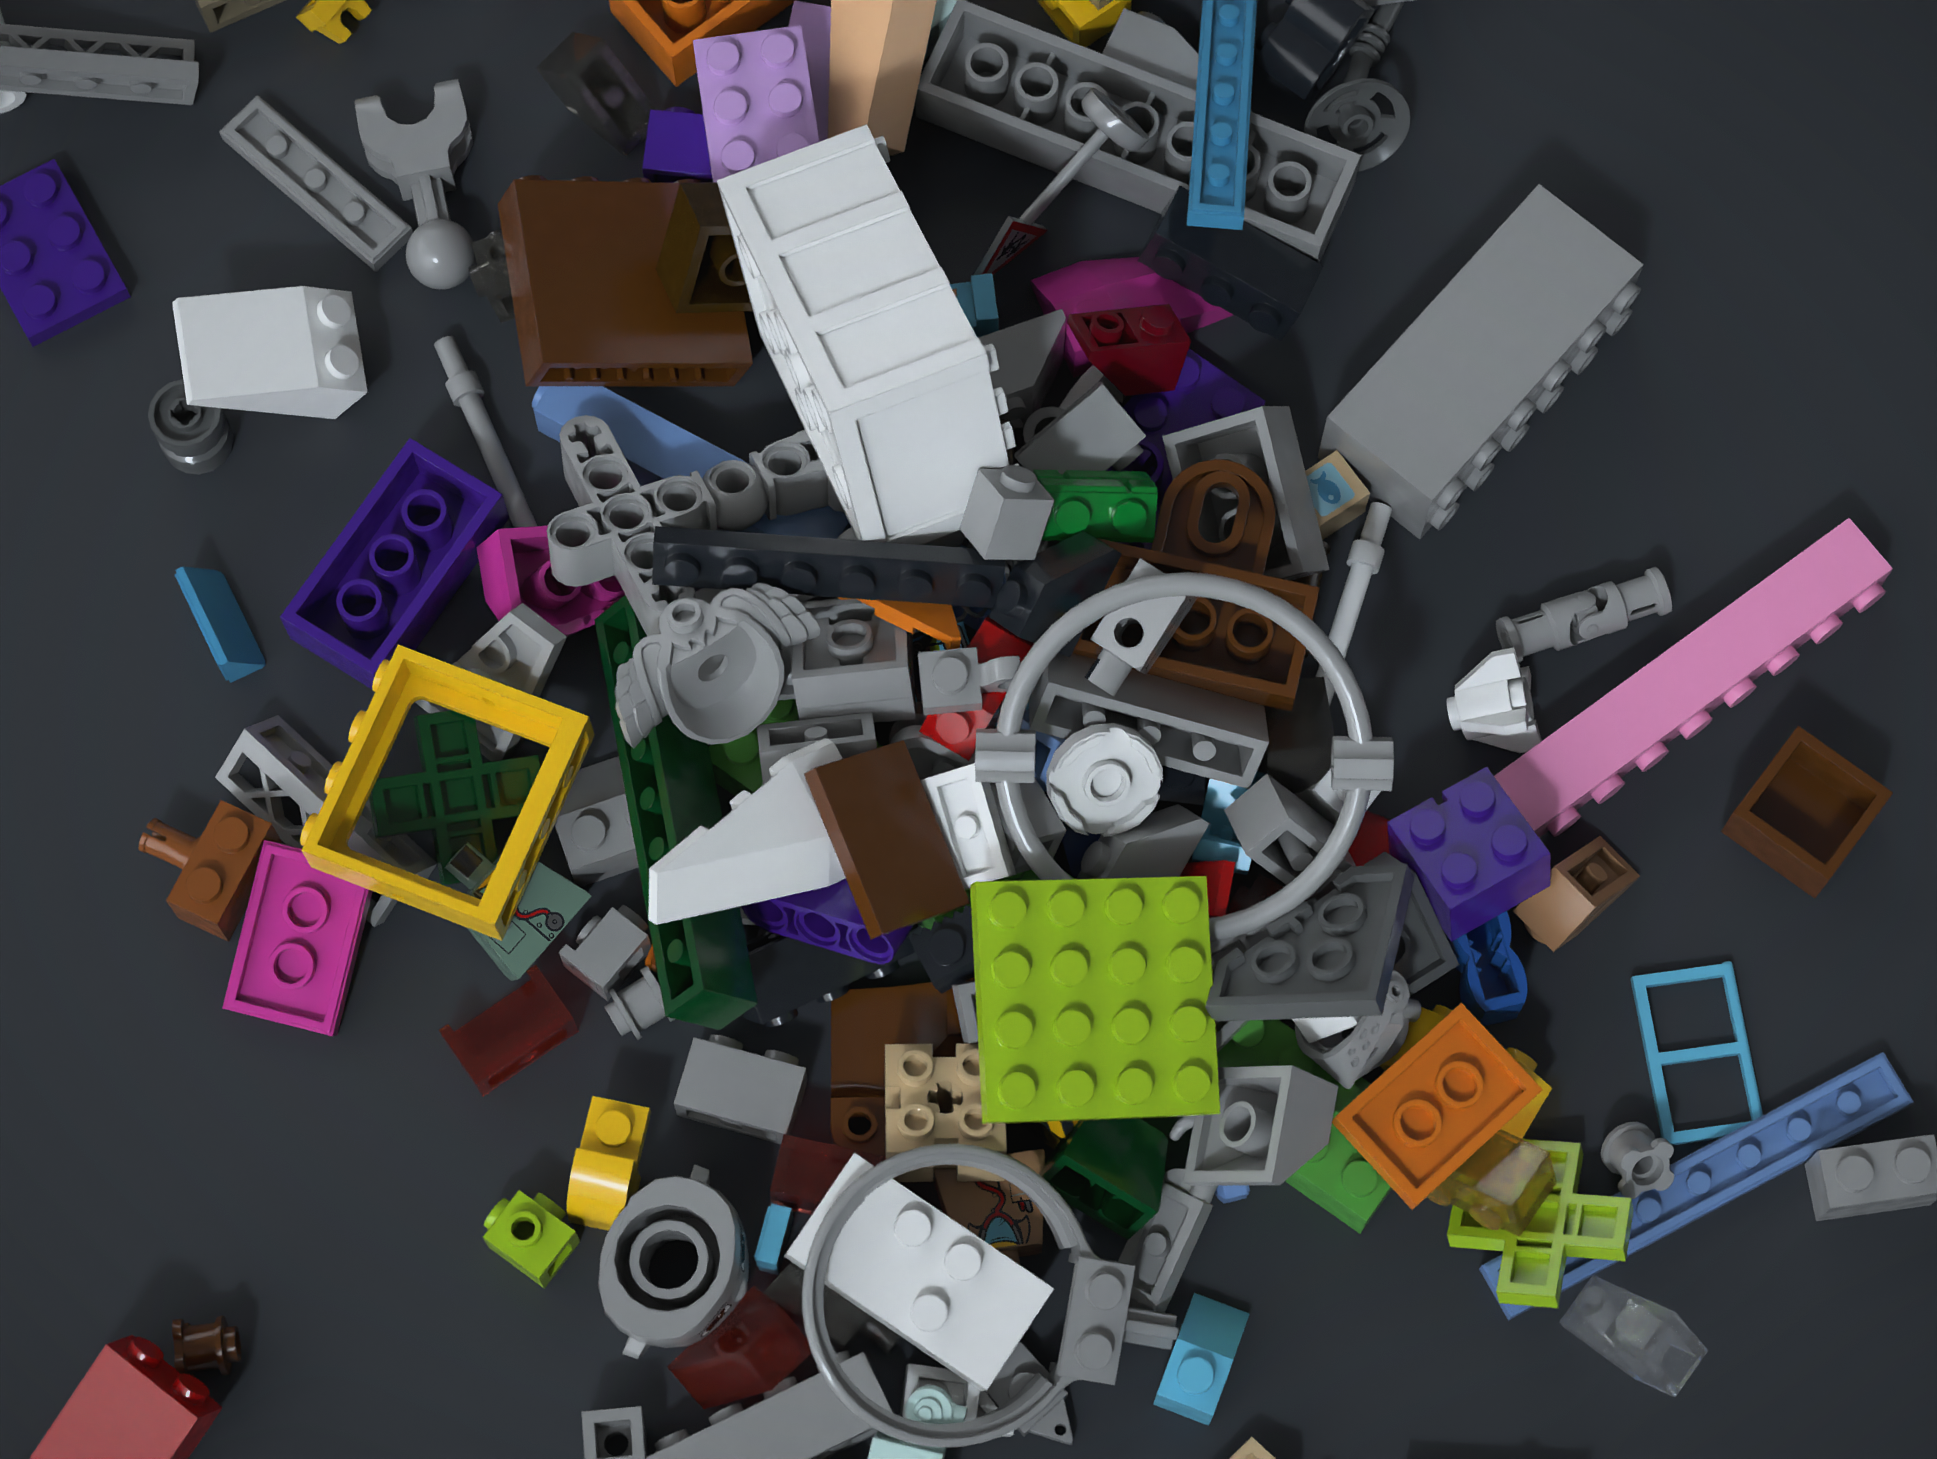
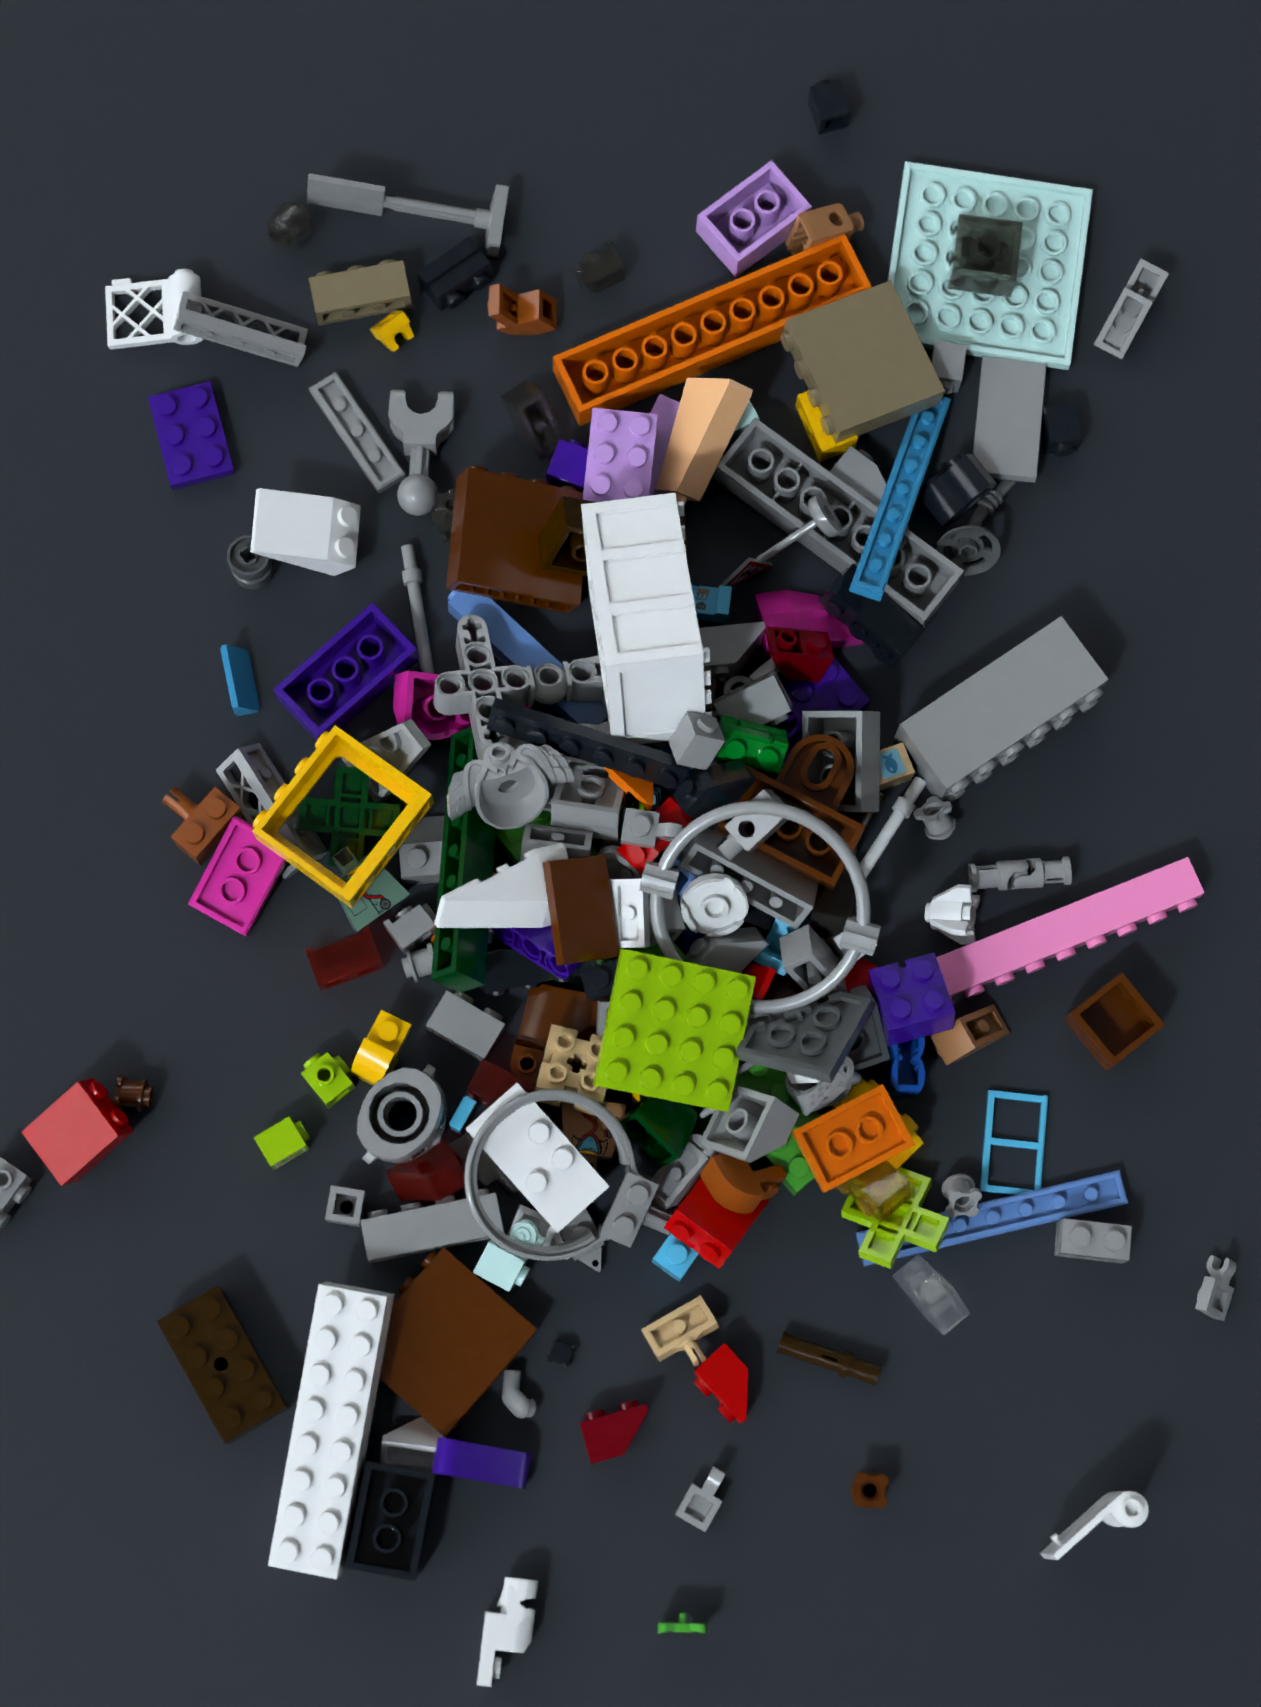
camera: 10 degrees right, 5 degrees up
(481, 1362) = (282, 1142): none -> lime brick
(1243, 1292) = (709, 1226): none -> red brick
(1264, 1232) = (737, 1186): none -> dark orange brick
(1425, 559) = (936, 818): none -> light grey brick

